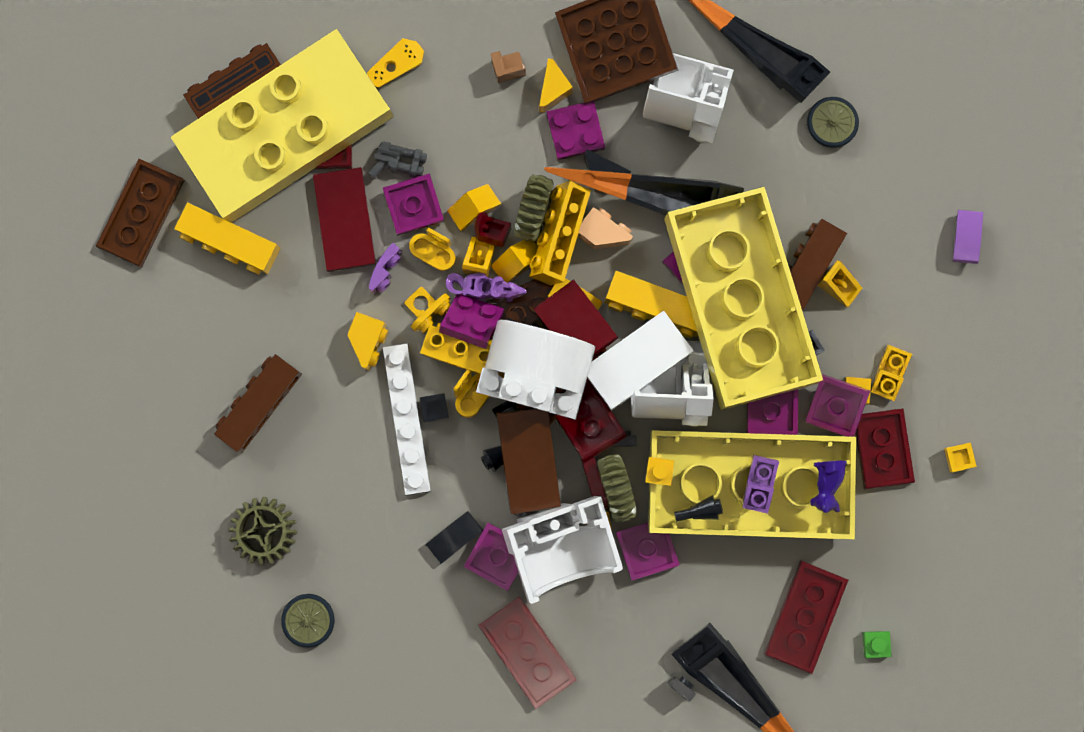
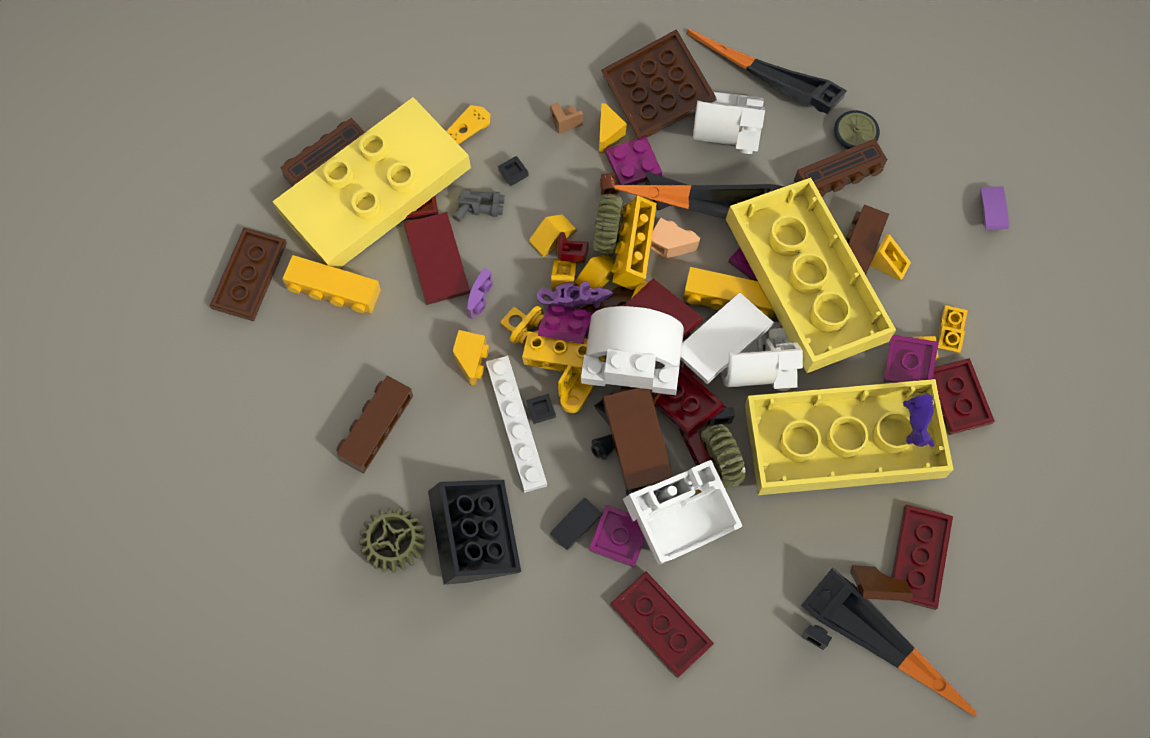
camera: 10 degrees left, 15 degrees down
(307, 620) = (444, 620): olive wheel -> none
(348, 532) = (473, 530): none -> black slope
(413, 204) = (498, 237): magenta plate -> none
(433, 250) = (520, 271): yellow bracket -> none
(440, 126) = (513, 171): none -> black plate
(543, 155) = (607, 182): none -> copper hose
(645, 551) = (760, 513): magenta plate -> none
(659, 471) = (761, 430): yellow plate -> none
(706, 510) = (811, 457): black cone -> none
(753, 647) = (877, 585): none -> reddish brown tile
(760, 484) = (856, 429): medium lavender slope -> none
(774, 414) = (853, 371): magenta plate -> none
(806, 169) = (844, 167): none -> reddish brown brick
(877, 644) = (992, 573): bright green plate -> none
(960, 457) = (1031, 394): yellow plate -> none

